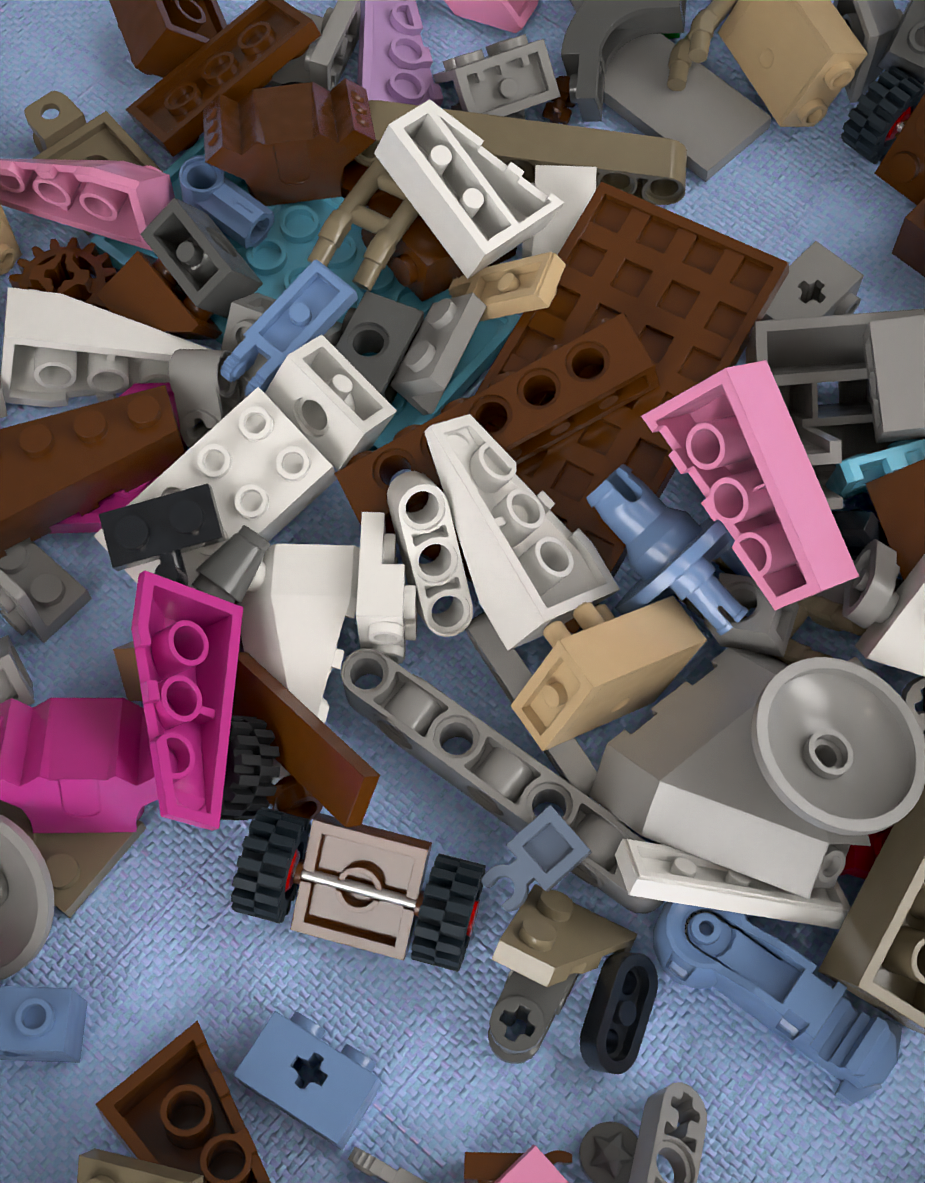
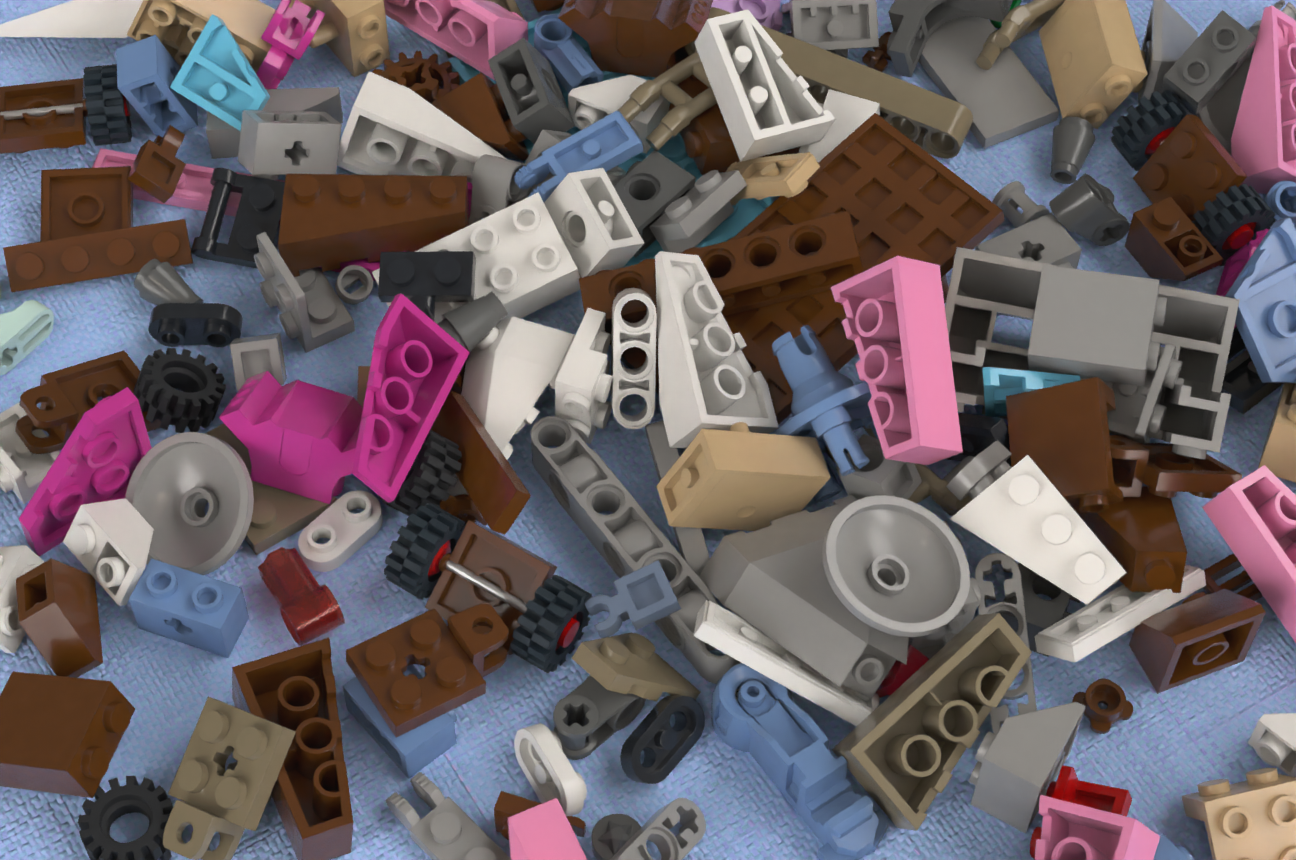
camera: 15 degrees right, 10 degrees down
(64, 538) = (349, 277): none -> light grey hinge
(150, 971) = (303, 603): none -> clear red piece
(162, 858) = (344, 529): none -> white plate
(283, 250) = (600, 99): none -> white slope
(346, 995) = (451, 662): none -> reddish brown plate
(505, 1097) = (548, 768): none -> white plate
(765, 230) = (1016, 193): none -> light grey bush
(800, 157) = (1070, 148): none -> dark grey cone
(852, 227) = (1090, 212): none -> dark grey piece

